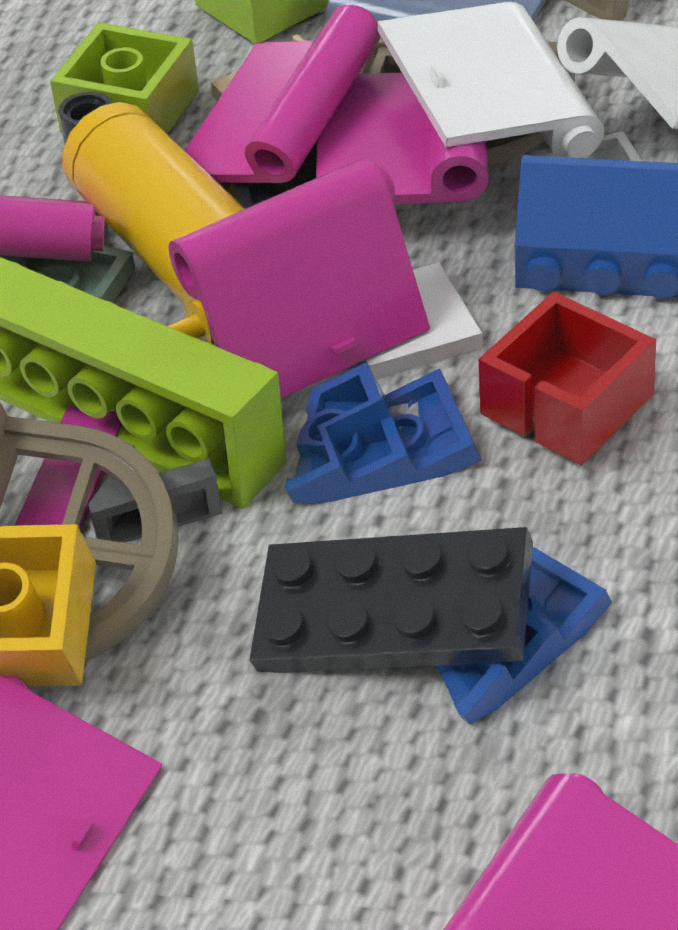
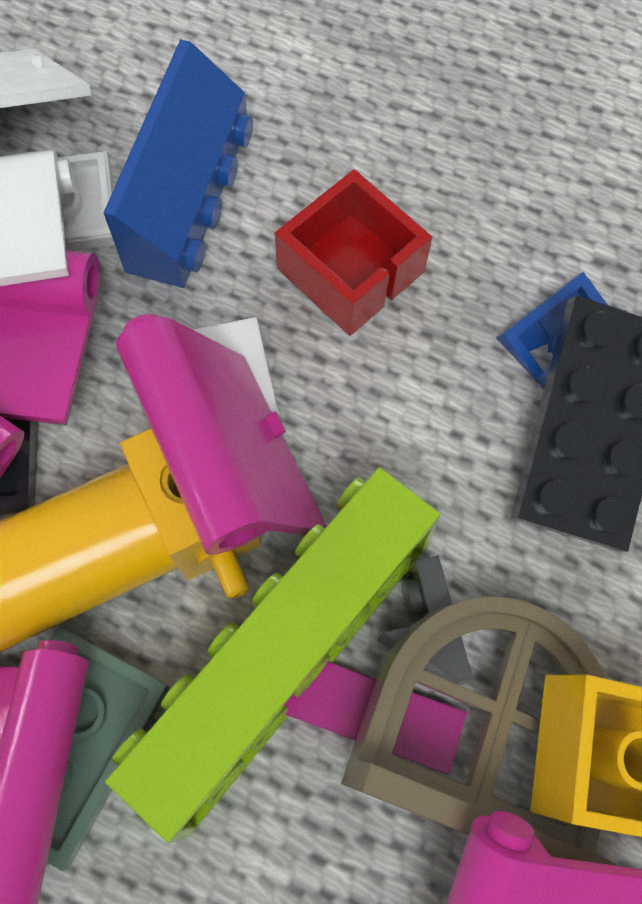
camera: 90 degrees left, 25 degrees up
(356, 441) = (375, 416): blue slope -> none

